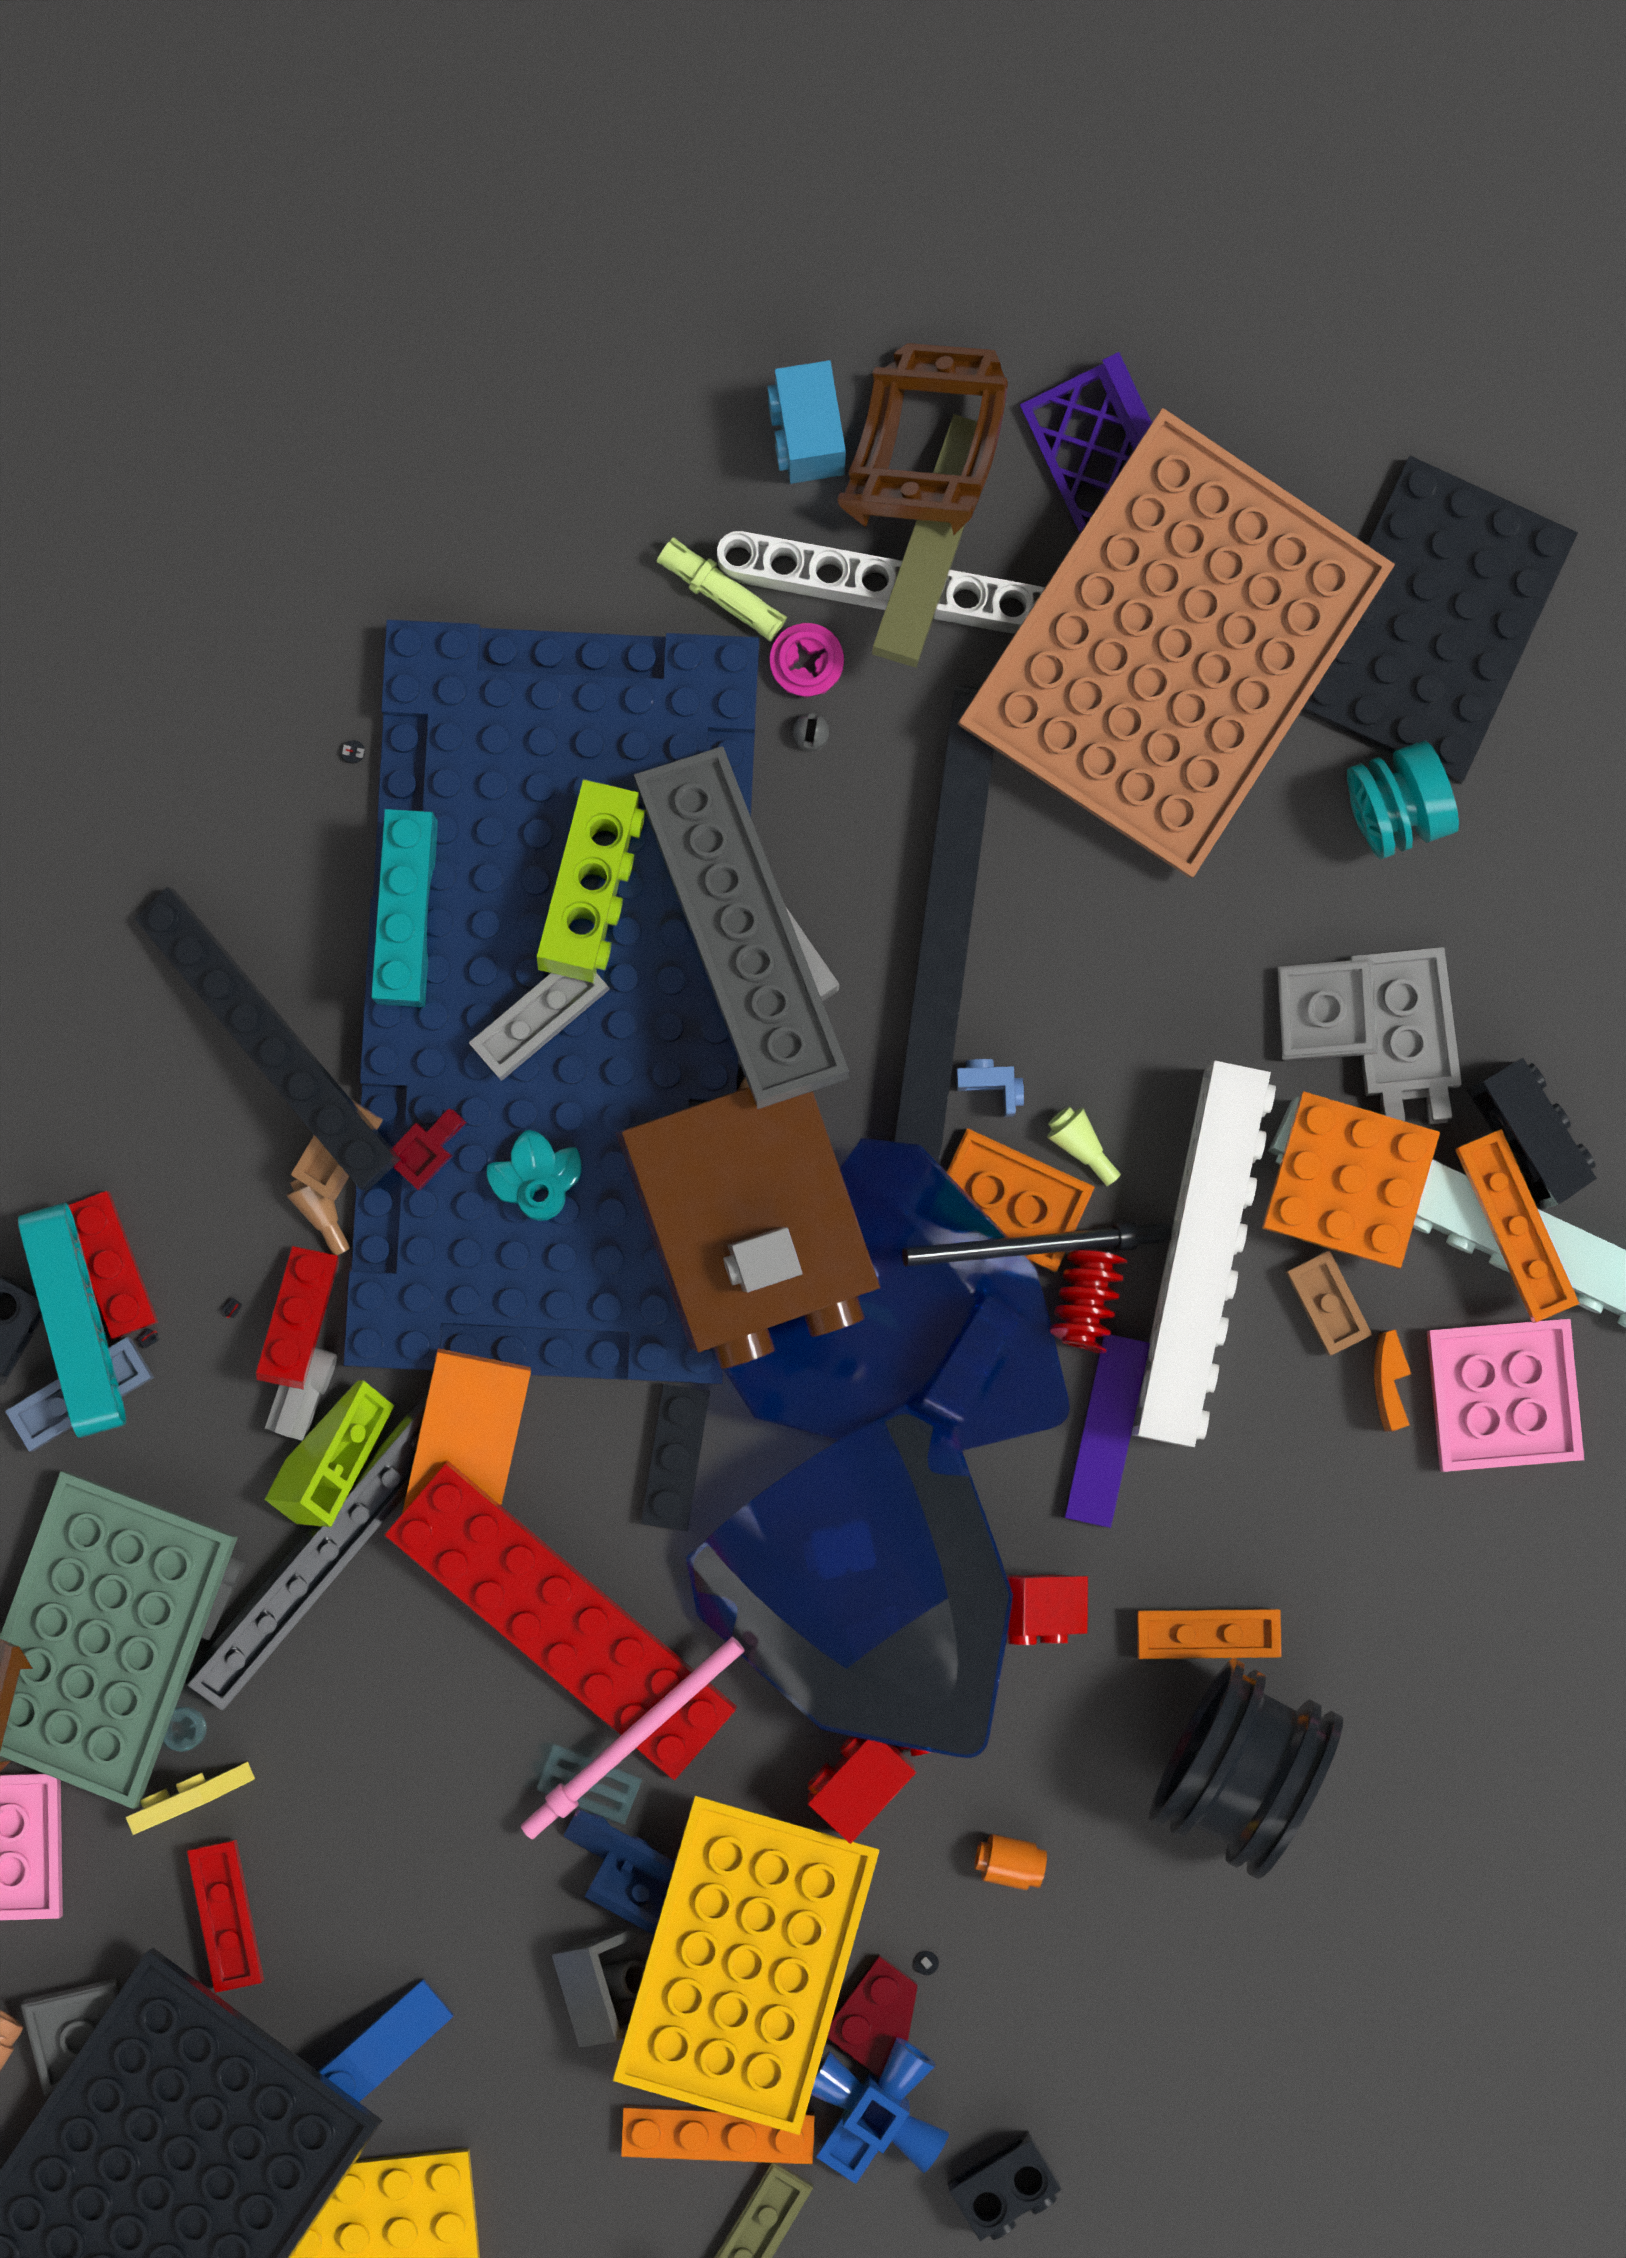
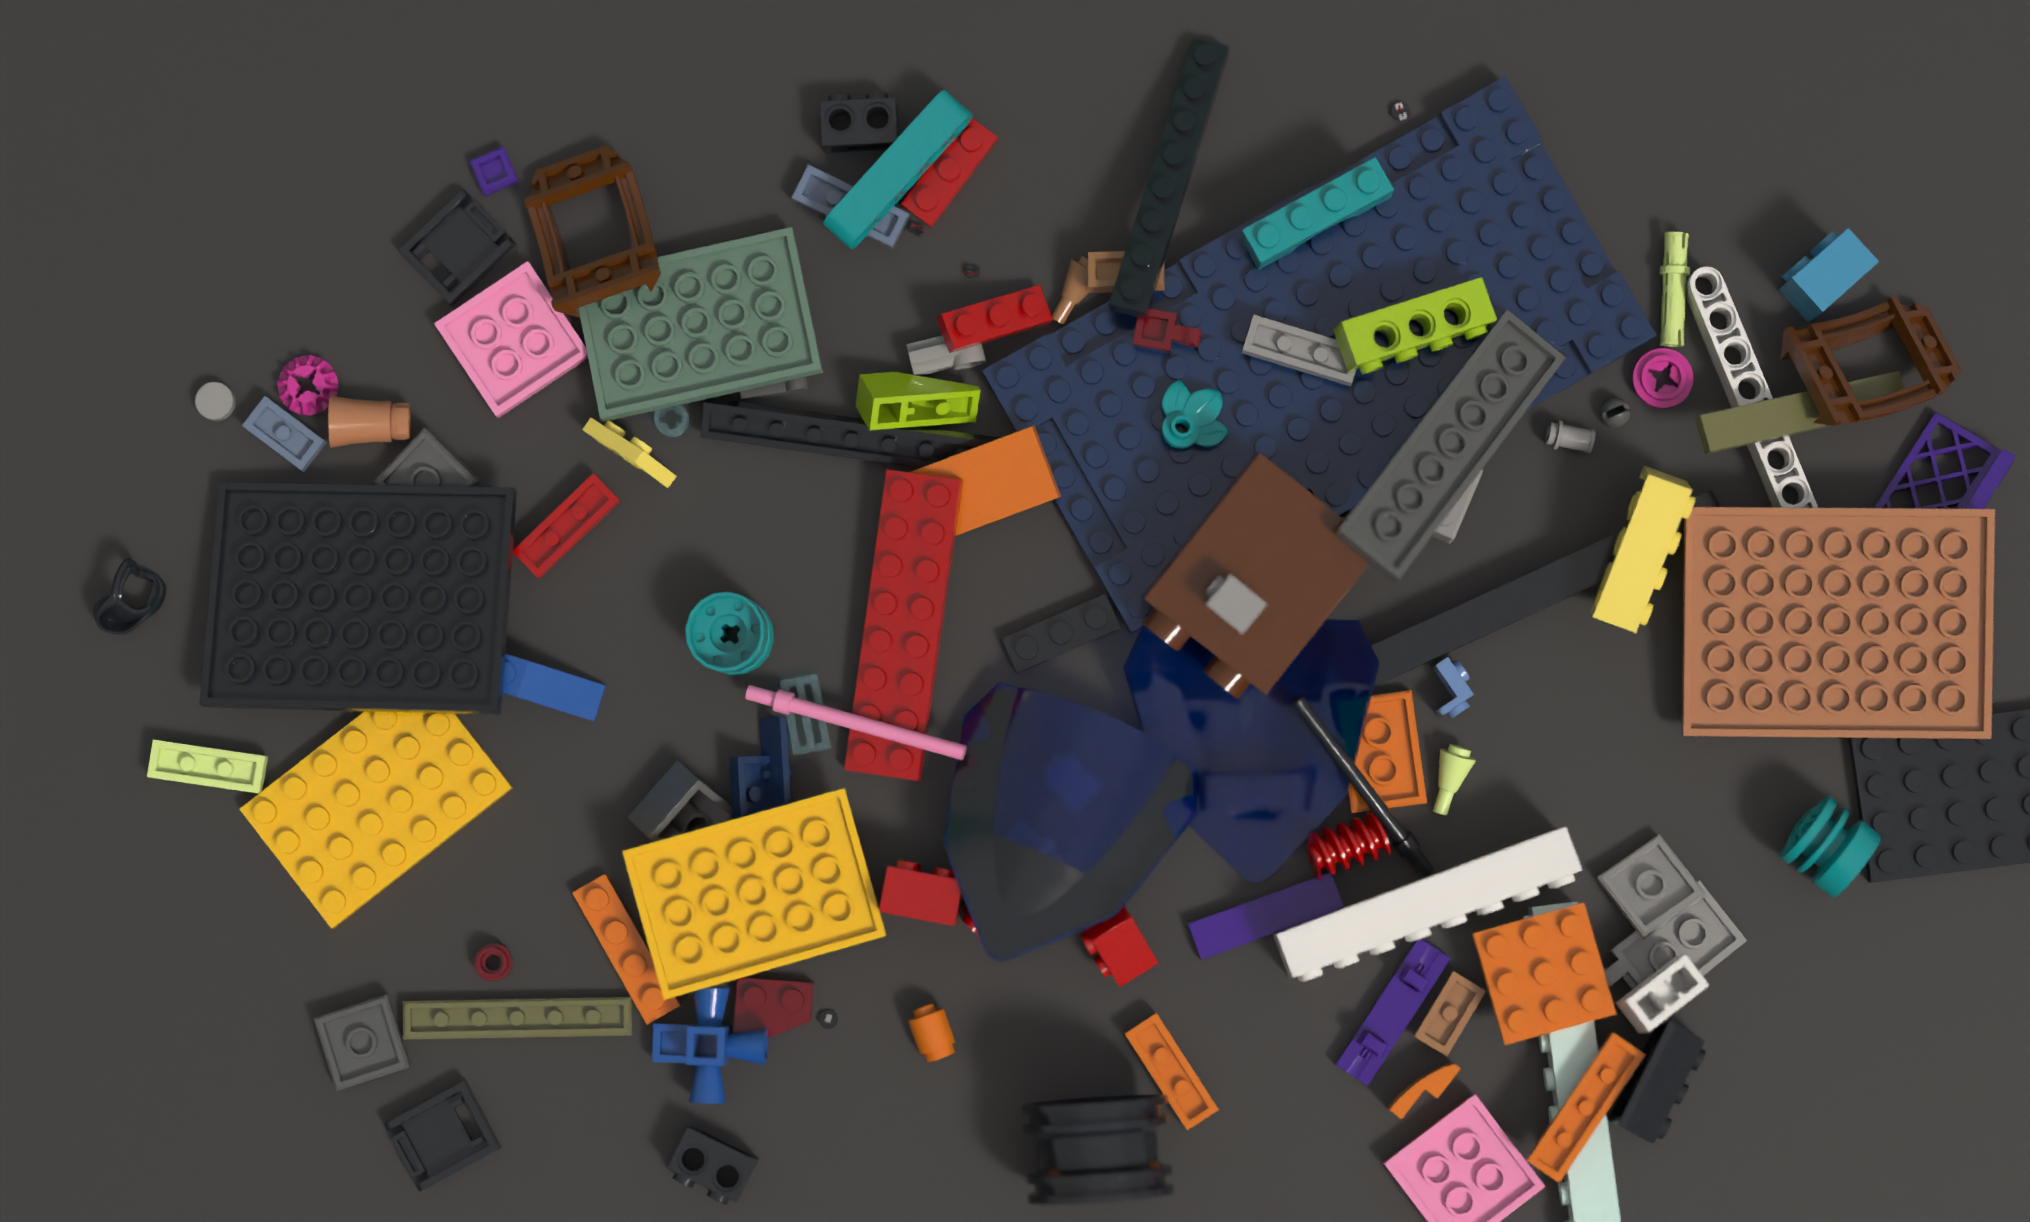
camera: 65 degrees right, 0 degrees up
(435, 1834) = (708, 633): none -> teal wheel
(807, 795) = (1569, 437): none -> light grey pin
(975, 795) = (1642, 550): none -> light yellow wedge
(1289, 1361) = (1392, 1011): none -> dark purple hinge
(1449, 1071) = (1662, 994): none -> white brick

